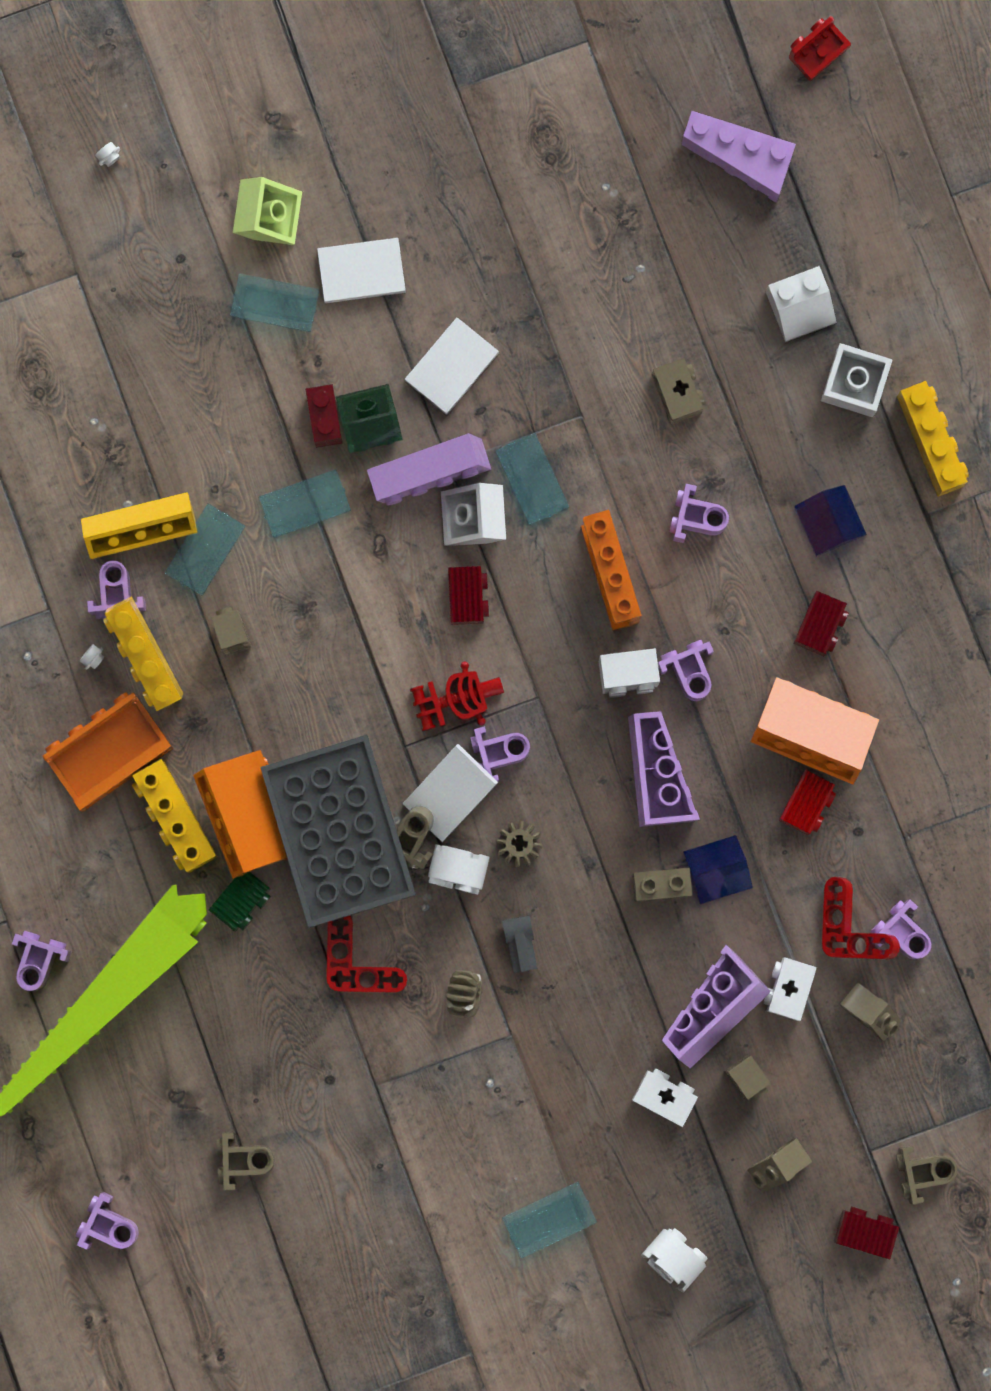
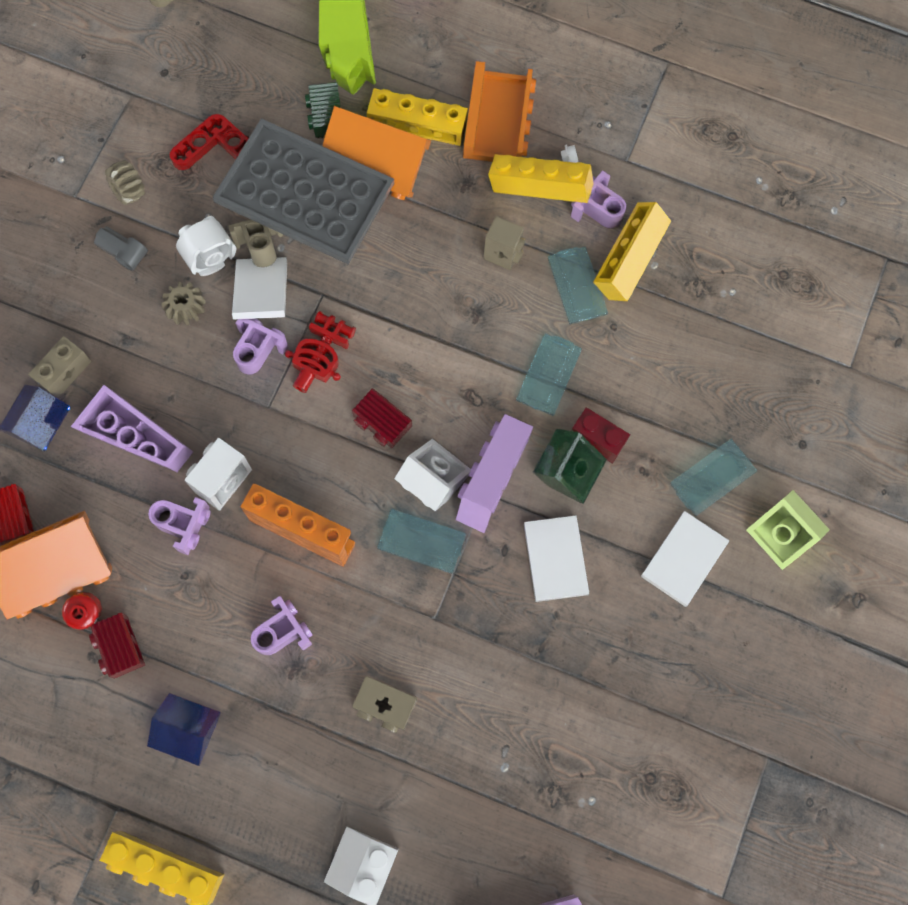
camera: 130 degrees right, 10 degrees down
(821, 672) = (73, 608): none -> red head
(856, 380) = (261, 850): white brick -> none

